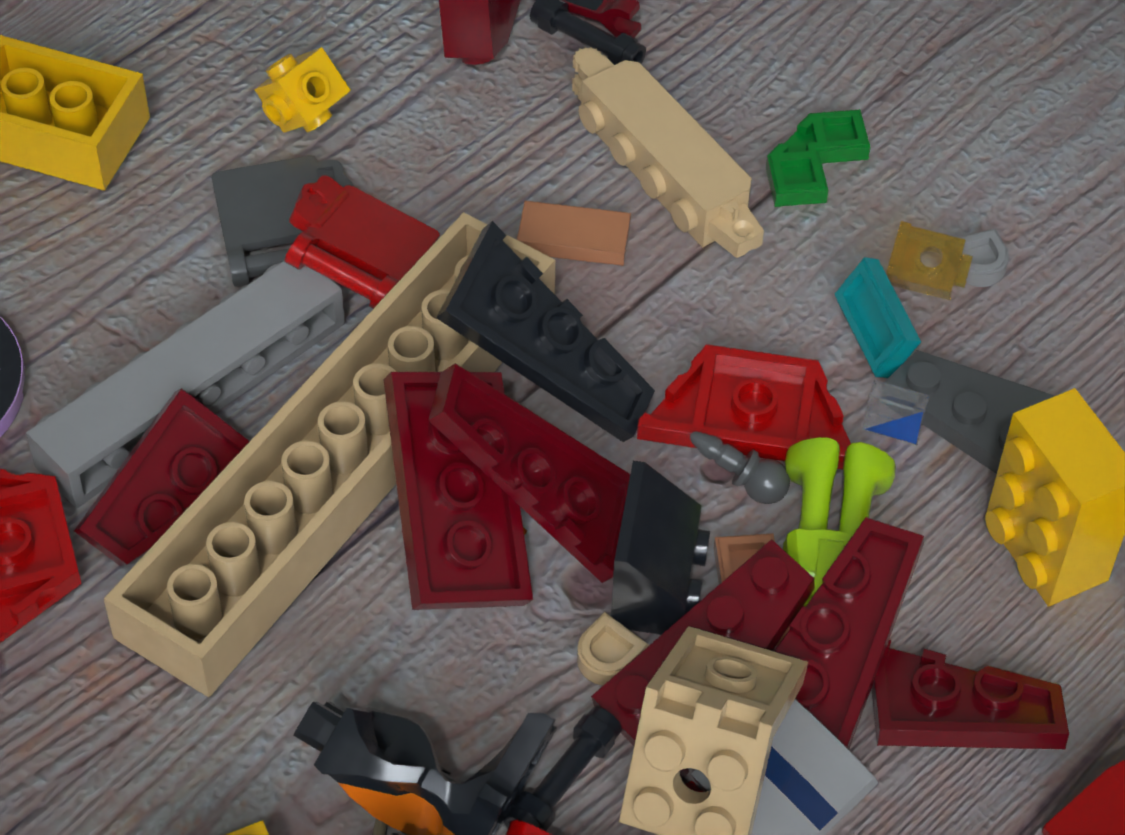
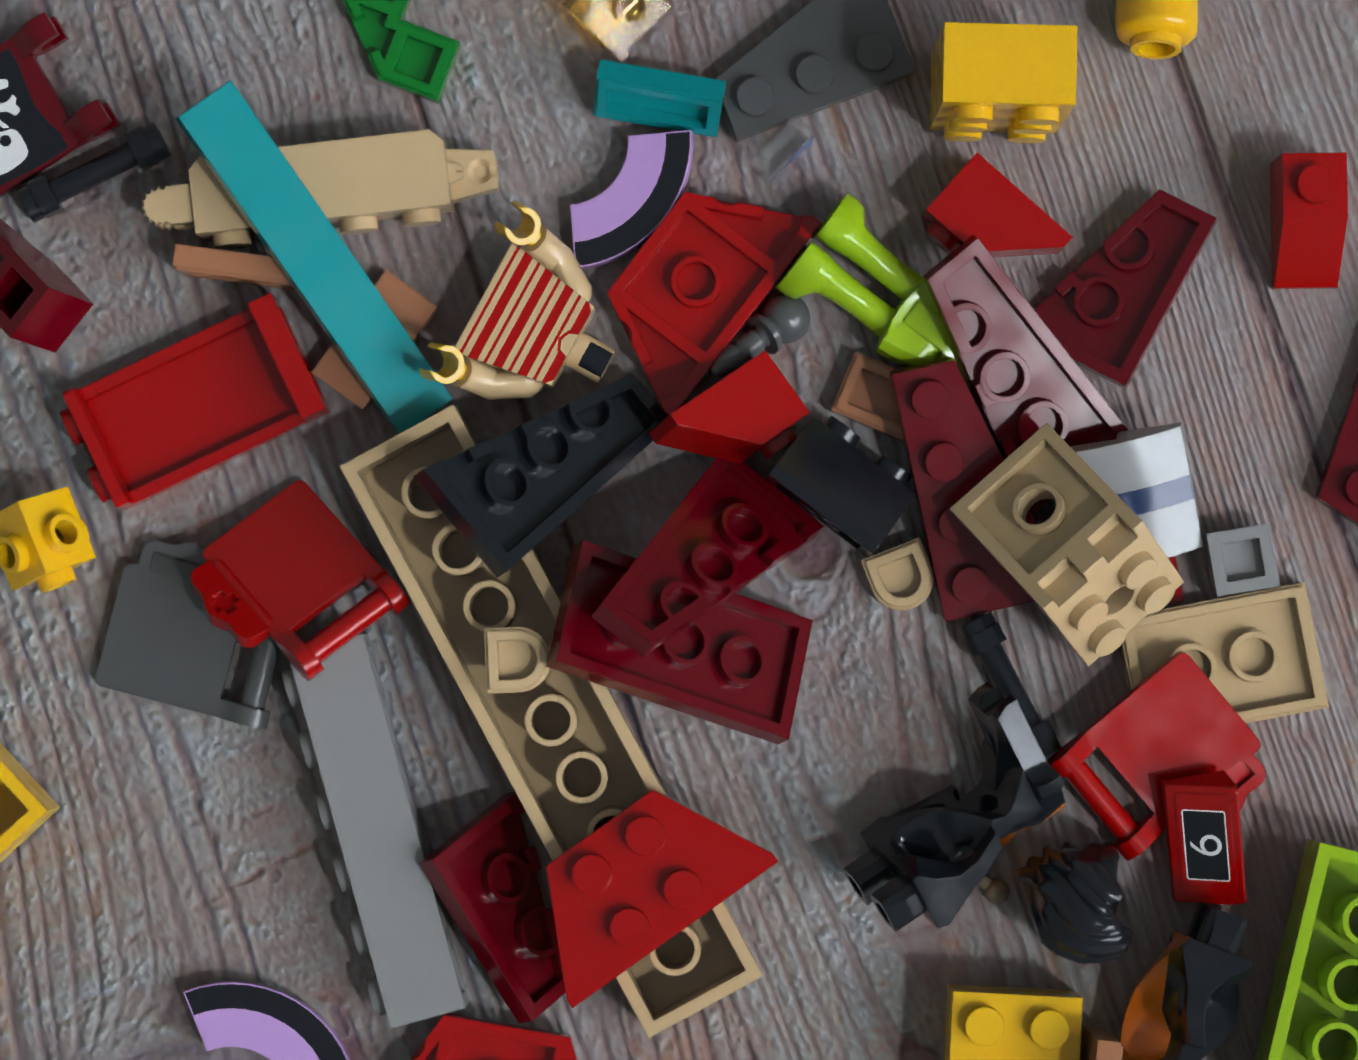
camera: 60 degrees left, 35 degrees up
(232, 530) = (640, 886): none -> red wing
(370, 365) = (514, 659): none -> tan tile
(455, 148) = (194, 405): none -> red panel
(575, 129) = (229, 266): none -> nougat tile
(613, 140) = (312, 256): none -> teal tile
(649, 304) = (526, 321): none -> torso
(668, 443) = (737, 415): none -> red slope
(817, 338) = (636, 201): none -> tile
(950, 575) = (995, 212): none -> red slope

